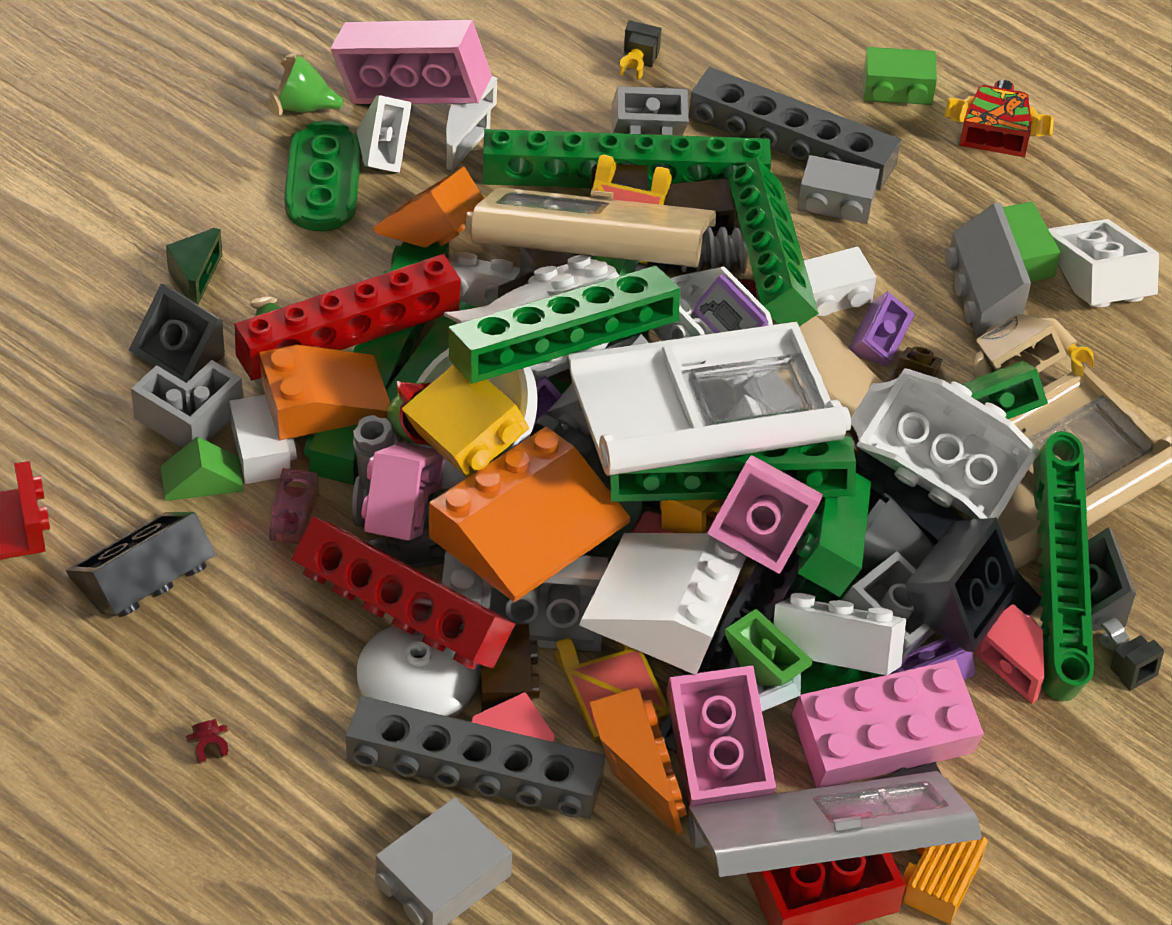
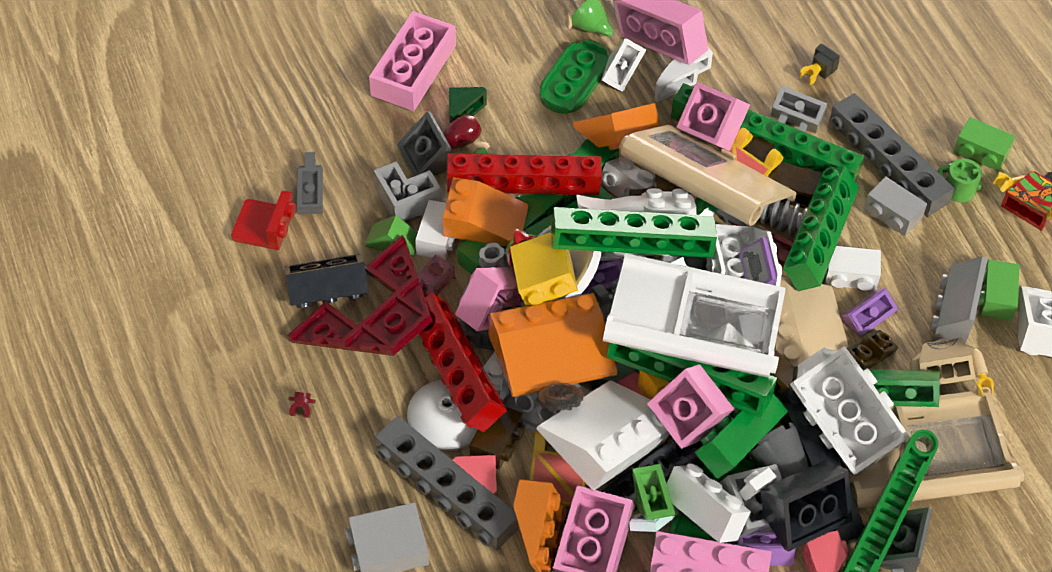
camera: 30 degrees right, 5 degrees up
(41, 446) = (310, 186): none -> dark grey hinge
(90, 229) = (413, 61): none -> bright pink brick
(219, 293) = (462, 131): none -> dark red animal
(275, 591) = (389, 325): none -> dark red wing
(557, 152) = (713, 116): none -> bright pink brick
(583, 573) = (560, 397): none -> clear smoke gear
(894, 579) = (755, 482): none -> white plate
(904, 120) = (964, 177): none -> bright green piece

